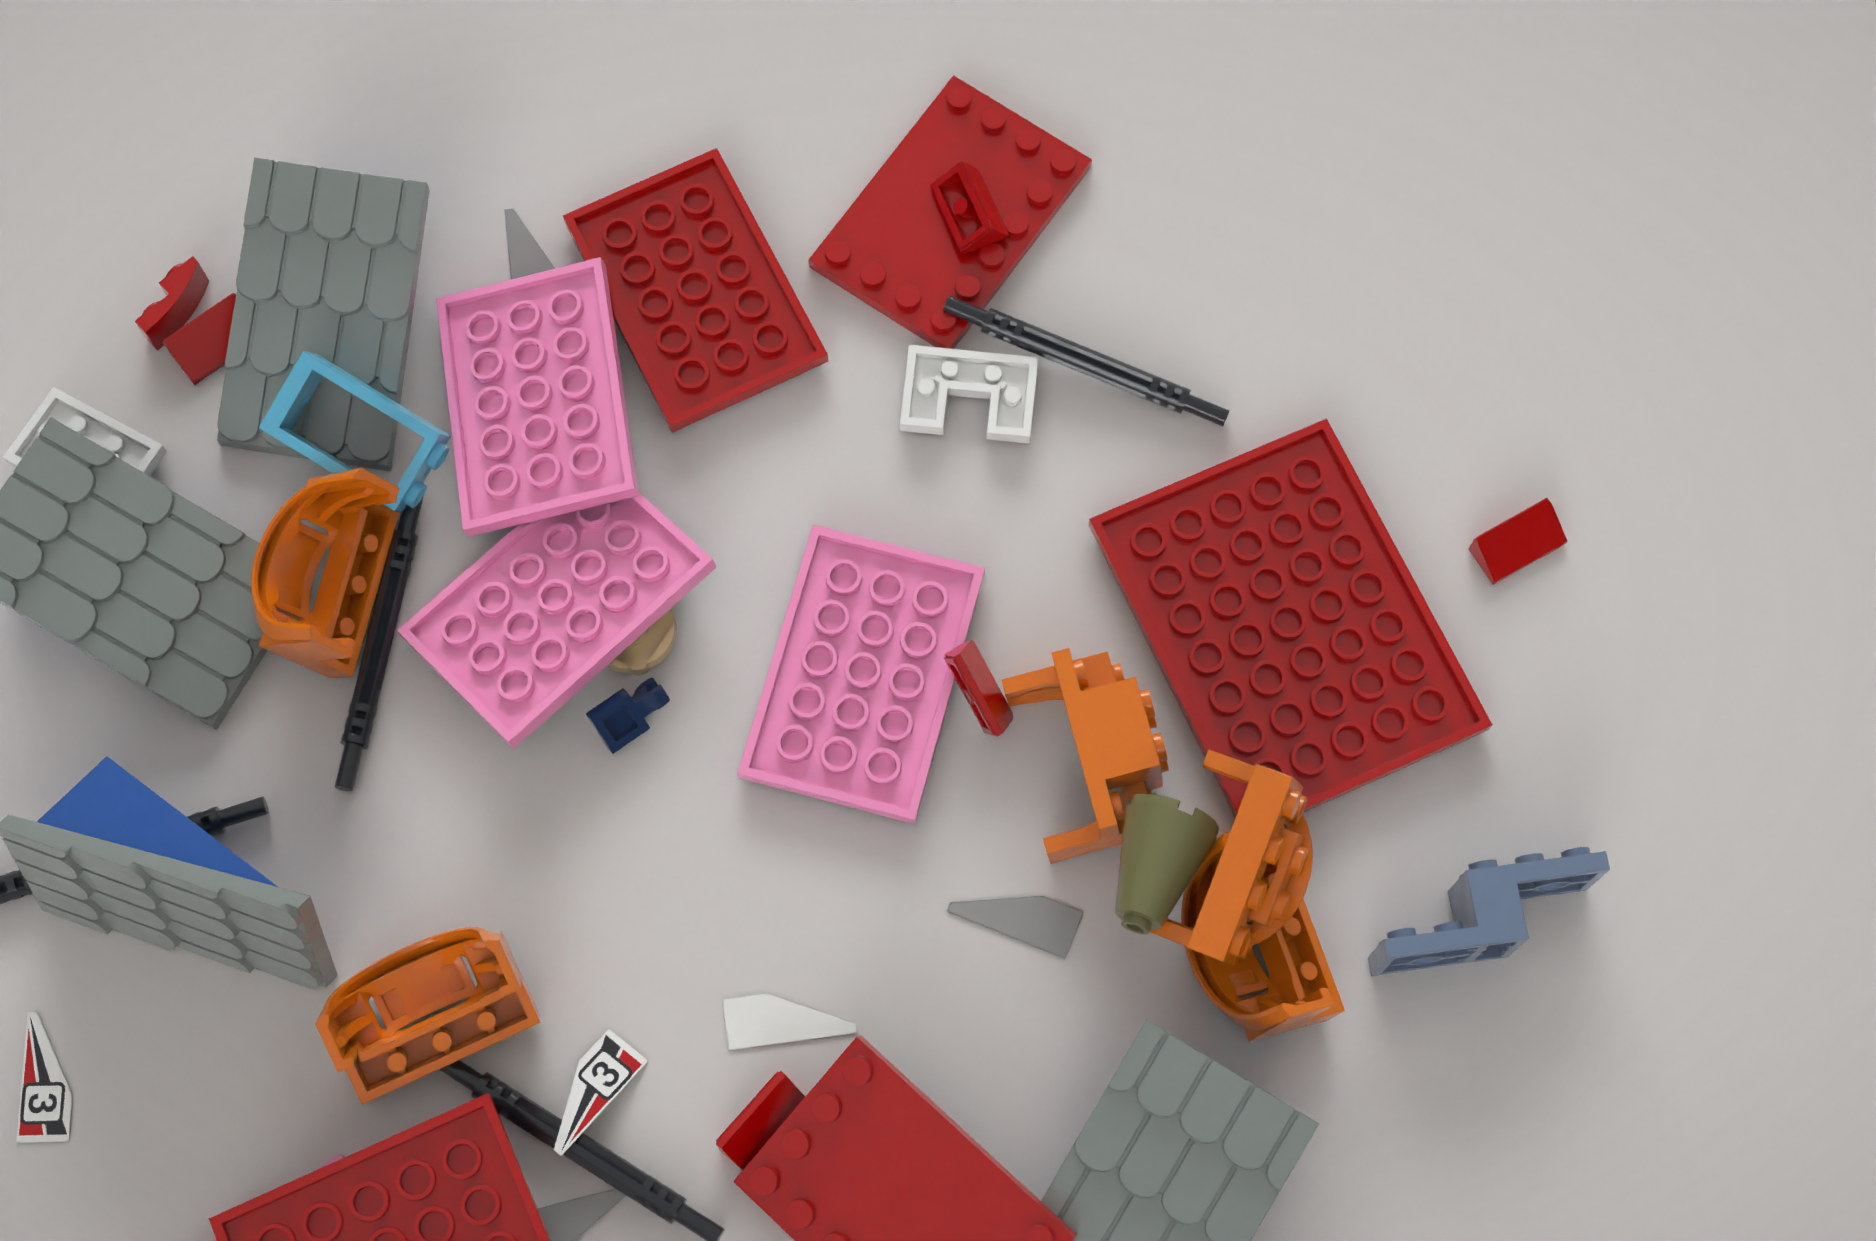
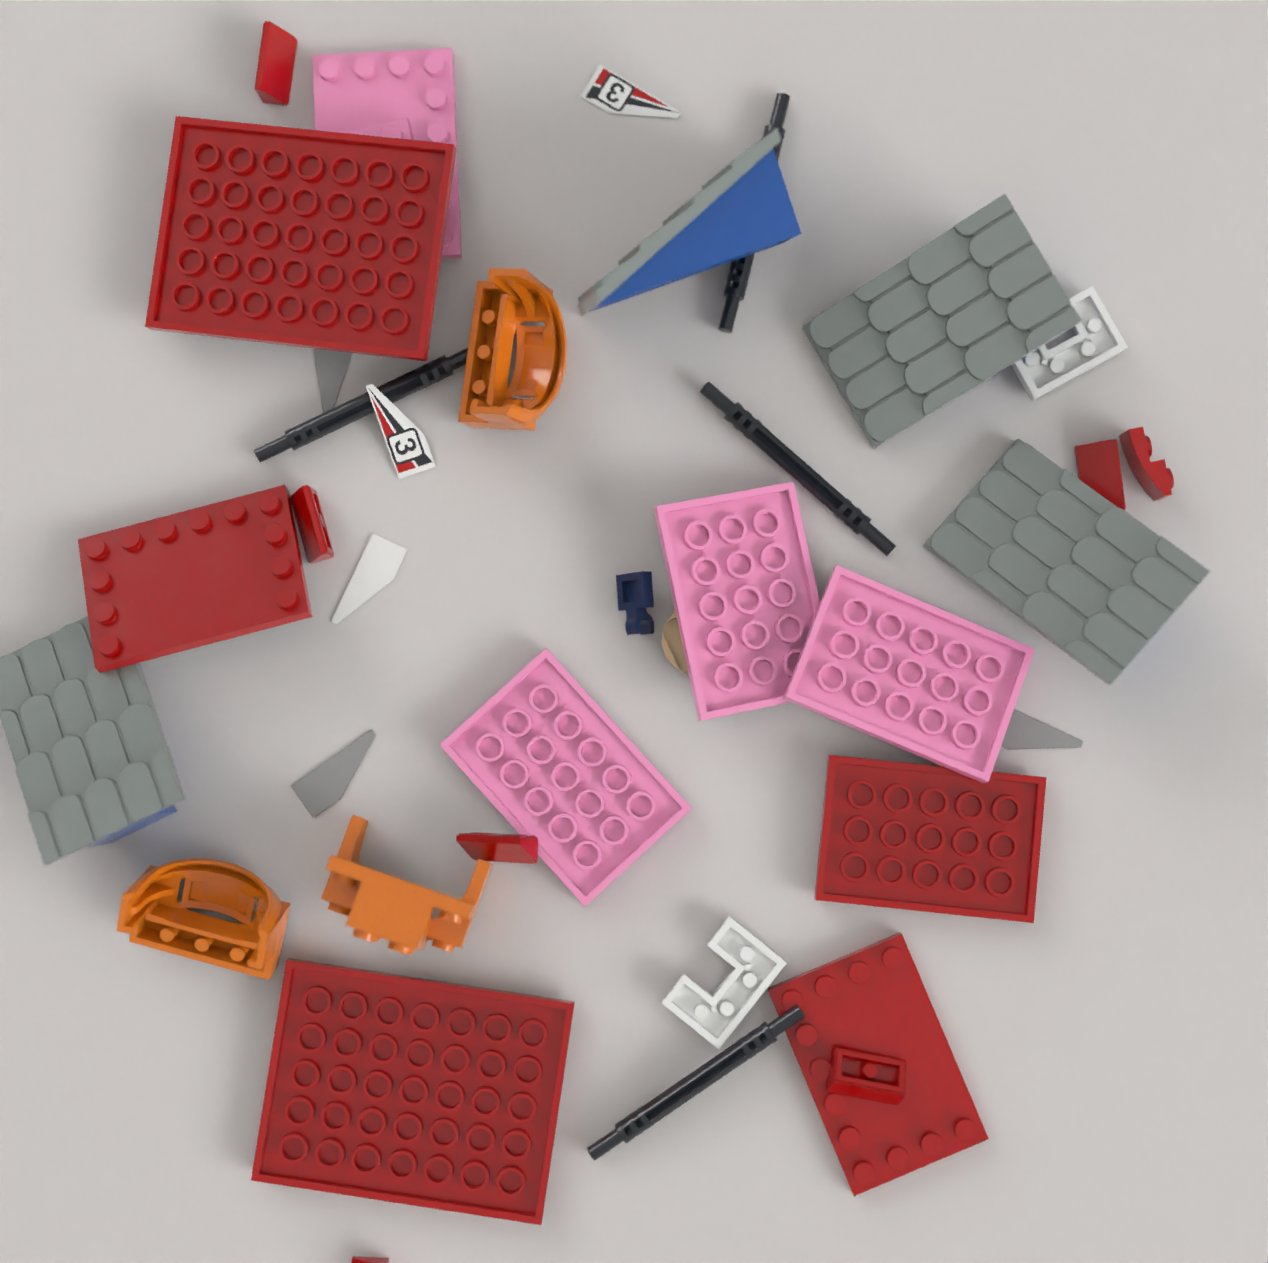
camera: 130 degrees right, 15 degrees up
(287, 559) = (819, 439): orange piece -> none
(298, 391) = (970, 557): medium azure window -> none
(1158, 858) = (281, 877): olive cone -> none
(1254, 840) = (228, 939): orange piece -> none
(1488, 911) = (126, 1081): sand blue bracket -> none

